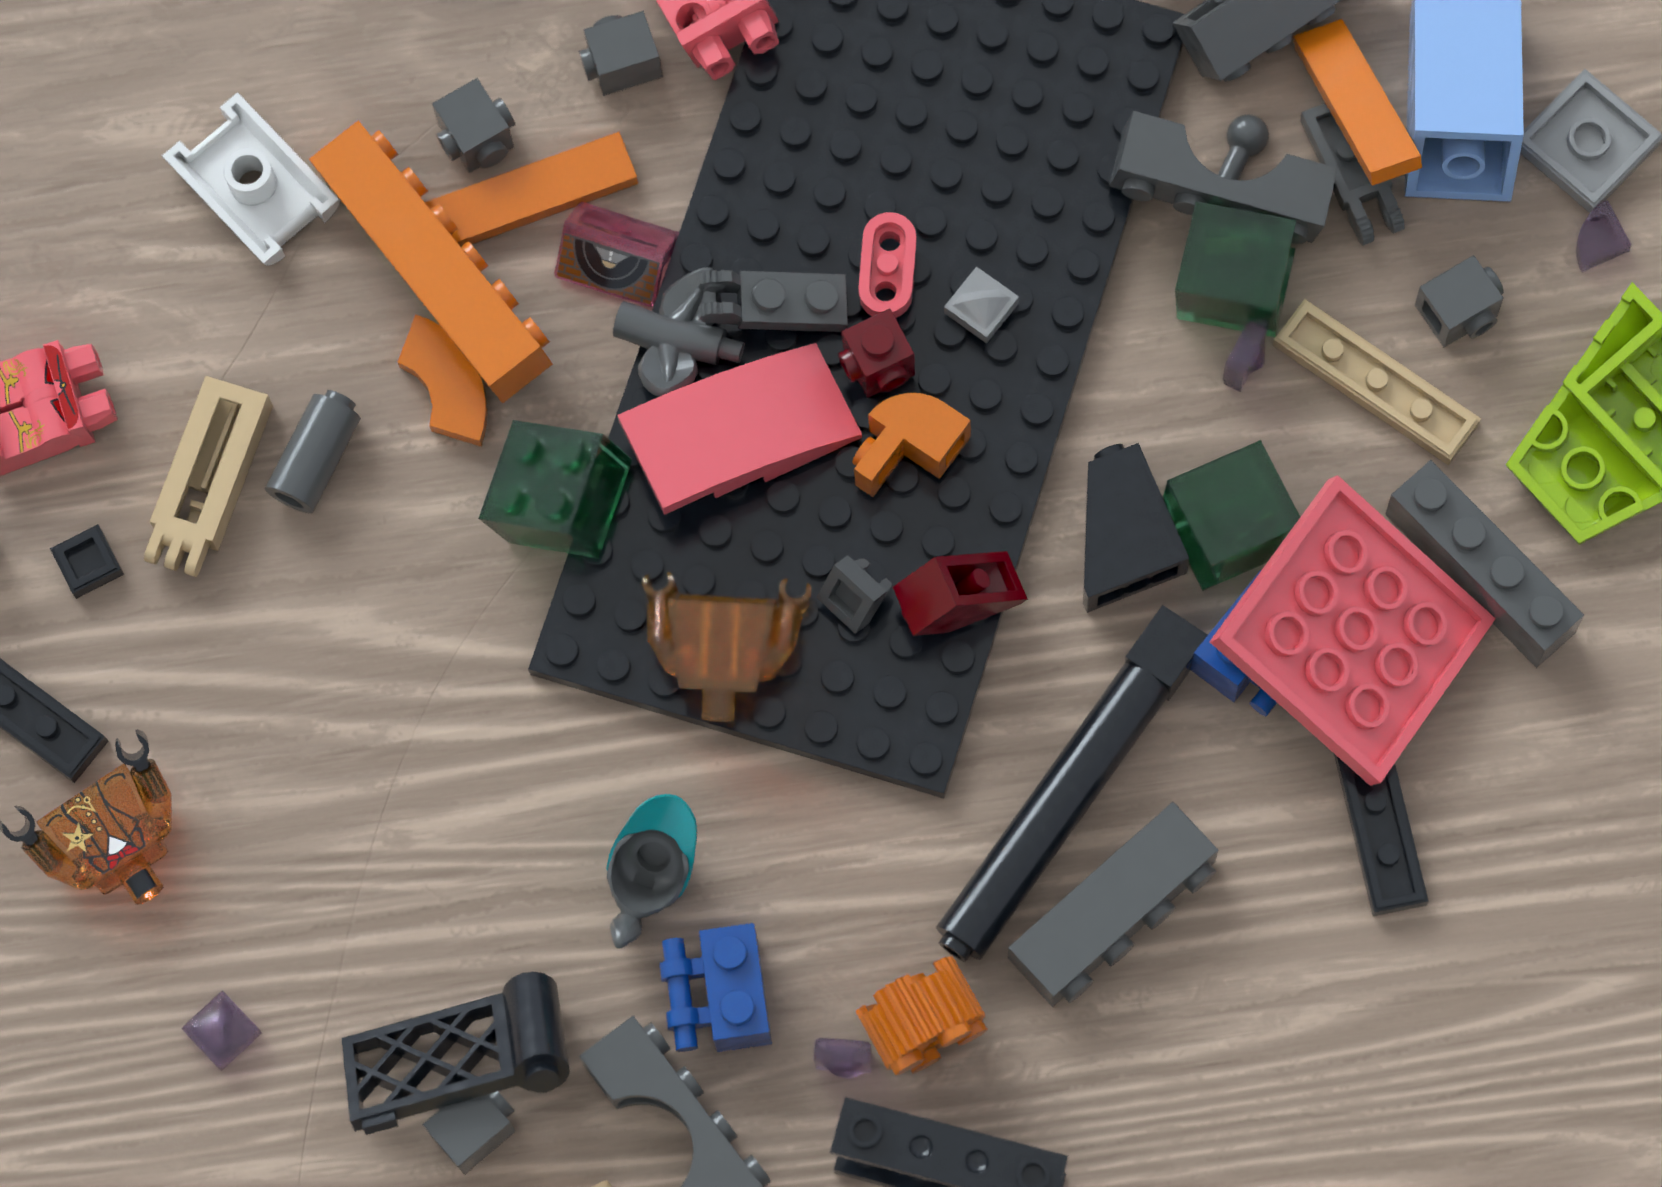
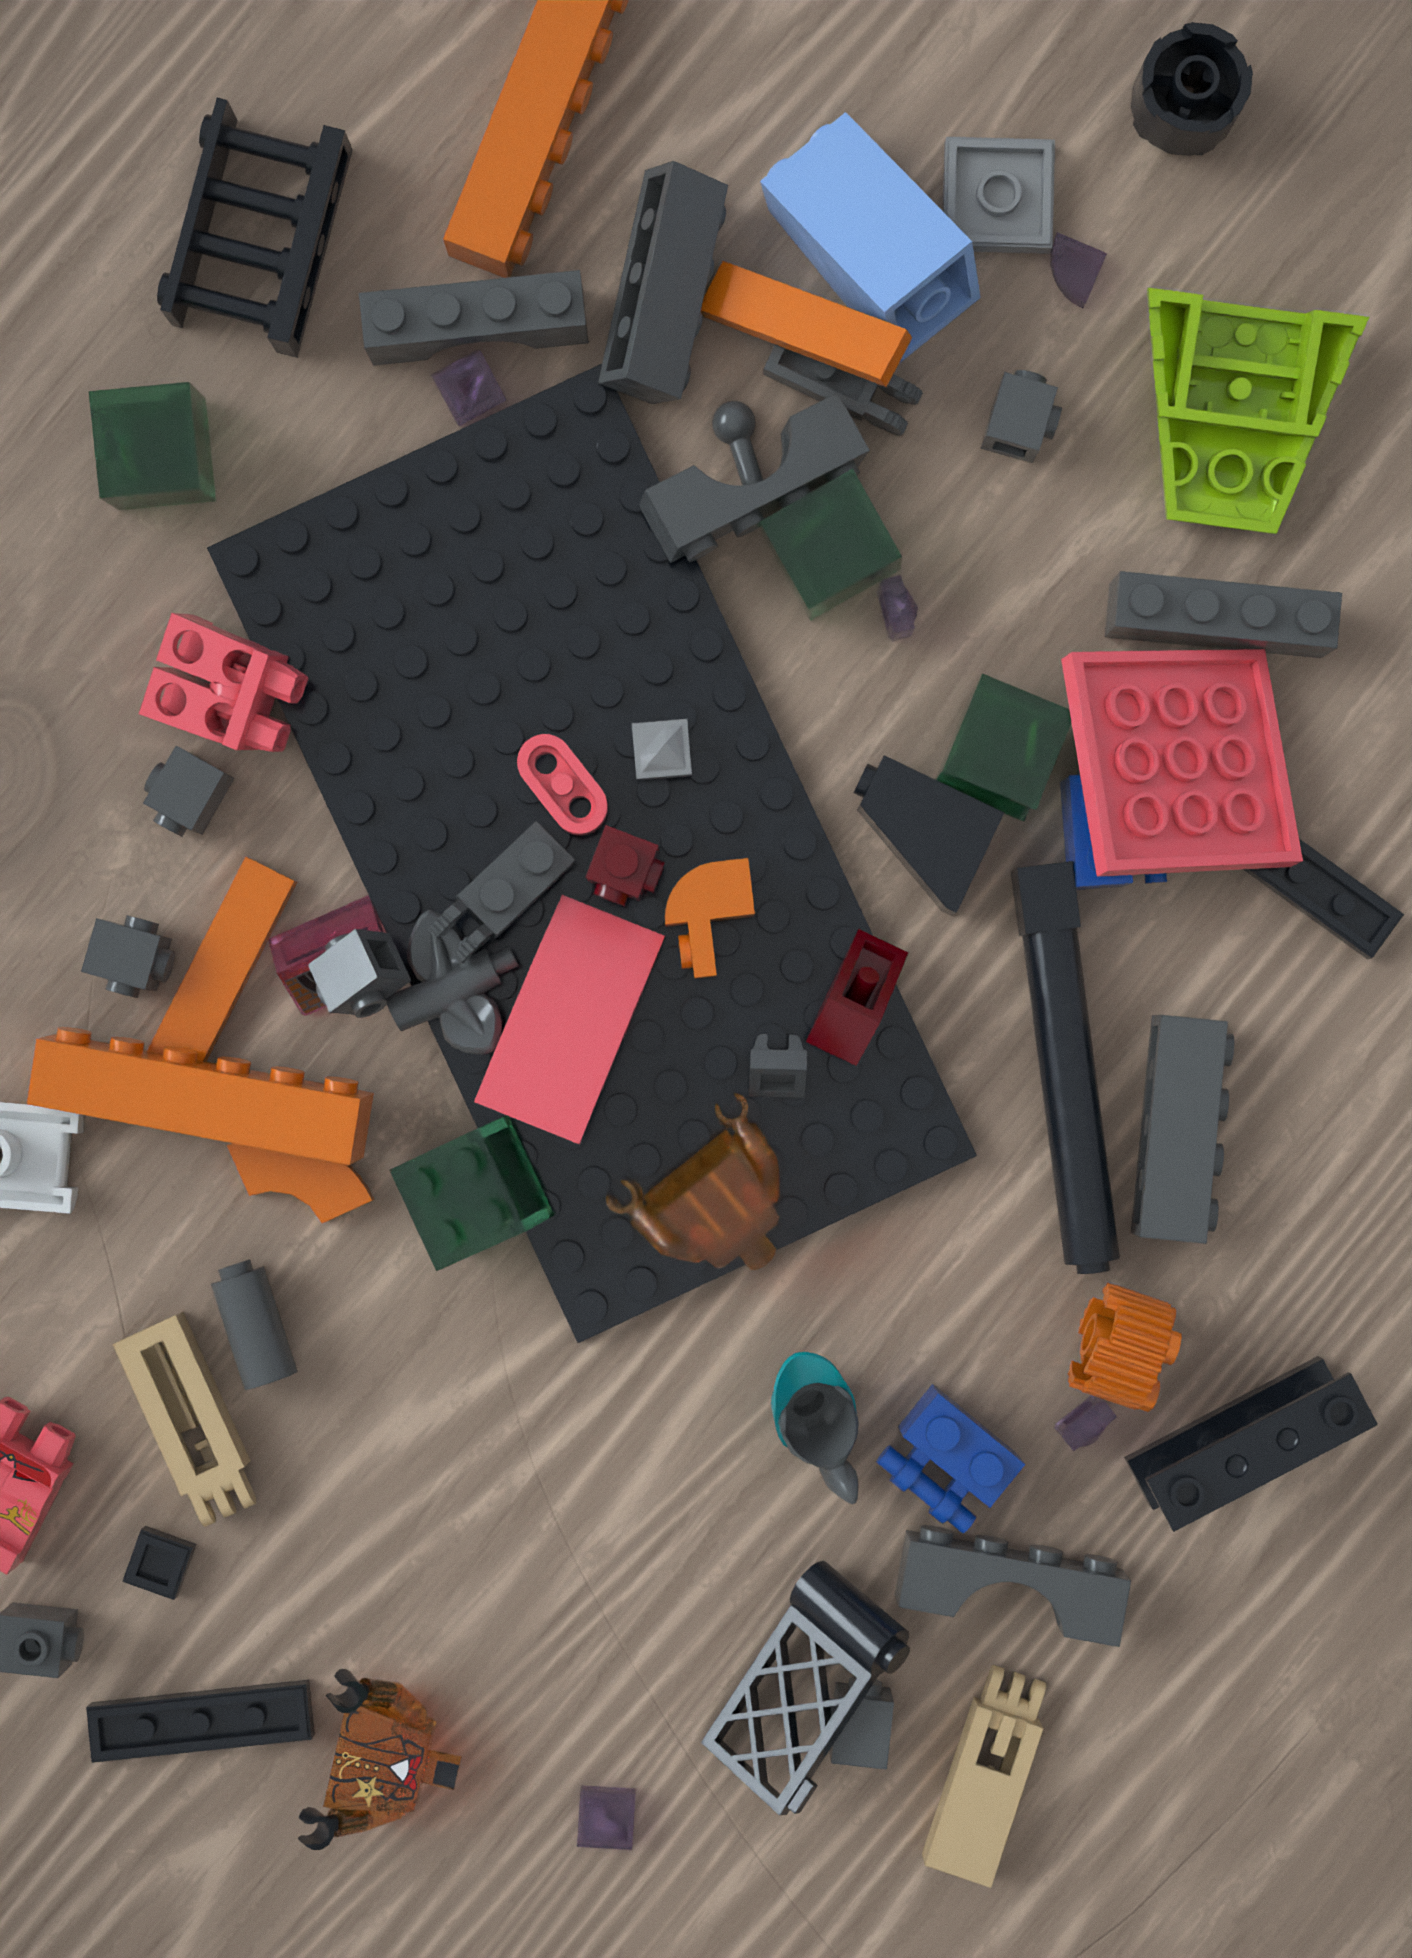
camera: 45 degrees left, 15 degrees up
(622, 264) = (358, 973): none -> brick
(1376, 382) = (1008, 537): tan tile -> none

